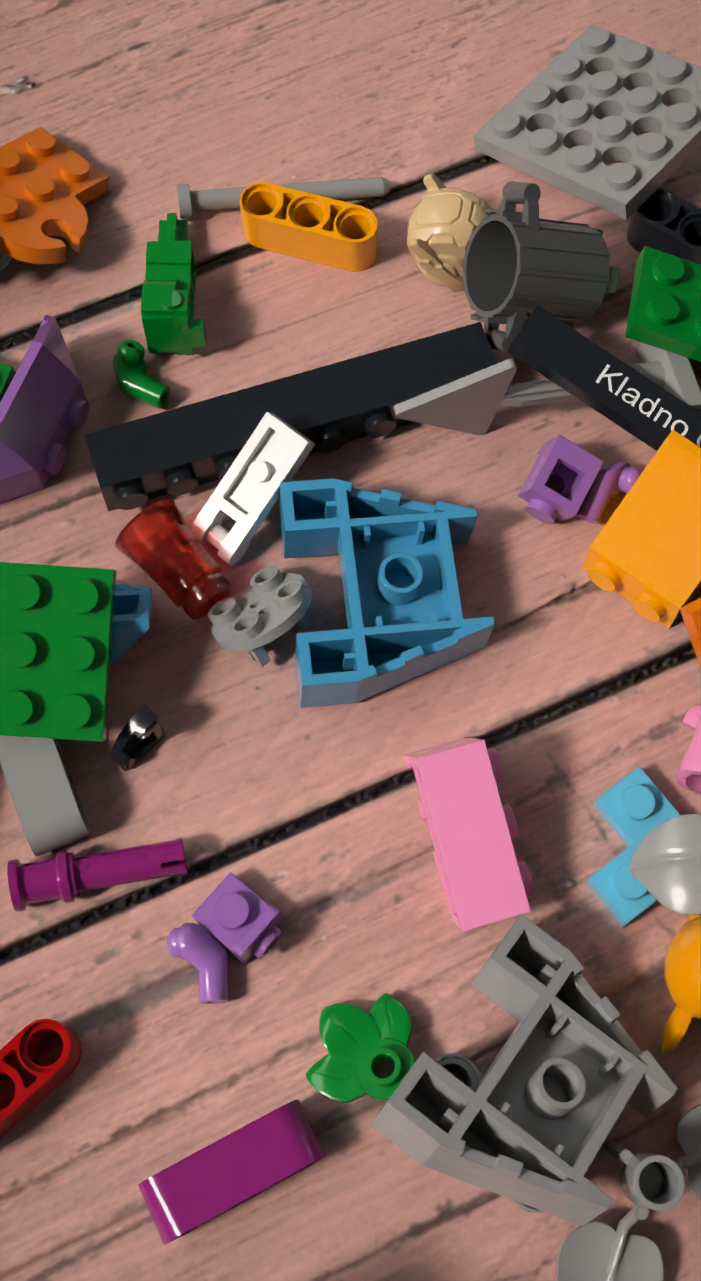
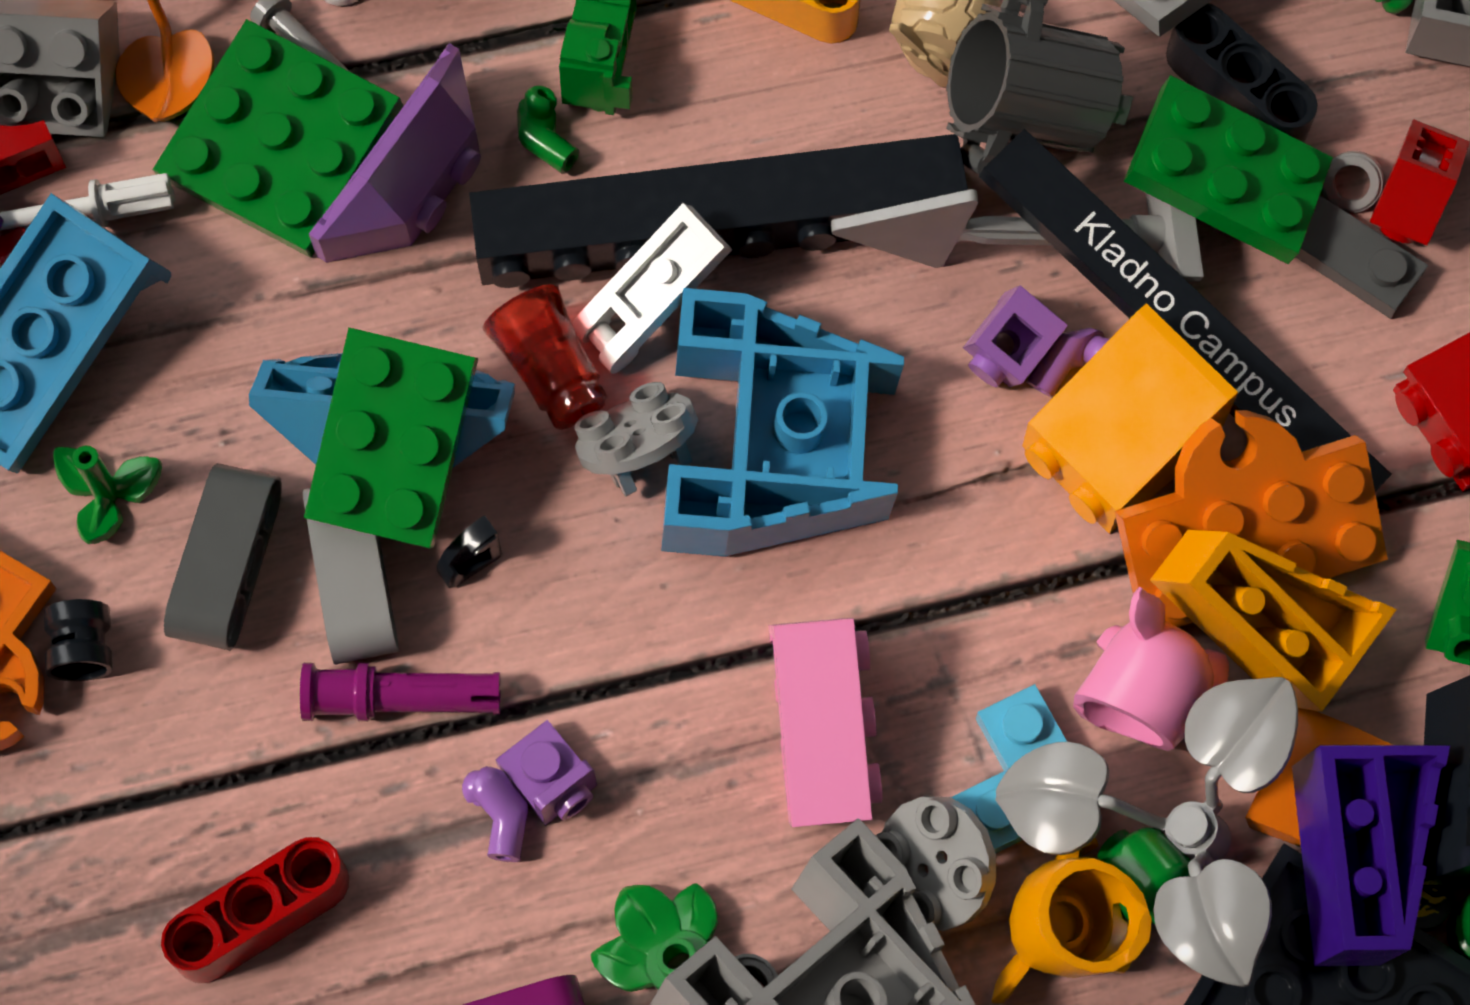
camera: 10 degrees right, 0 degrees up
(610, 961) = (953, 888): none -> light grey plate

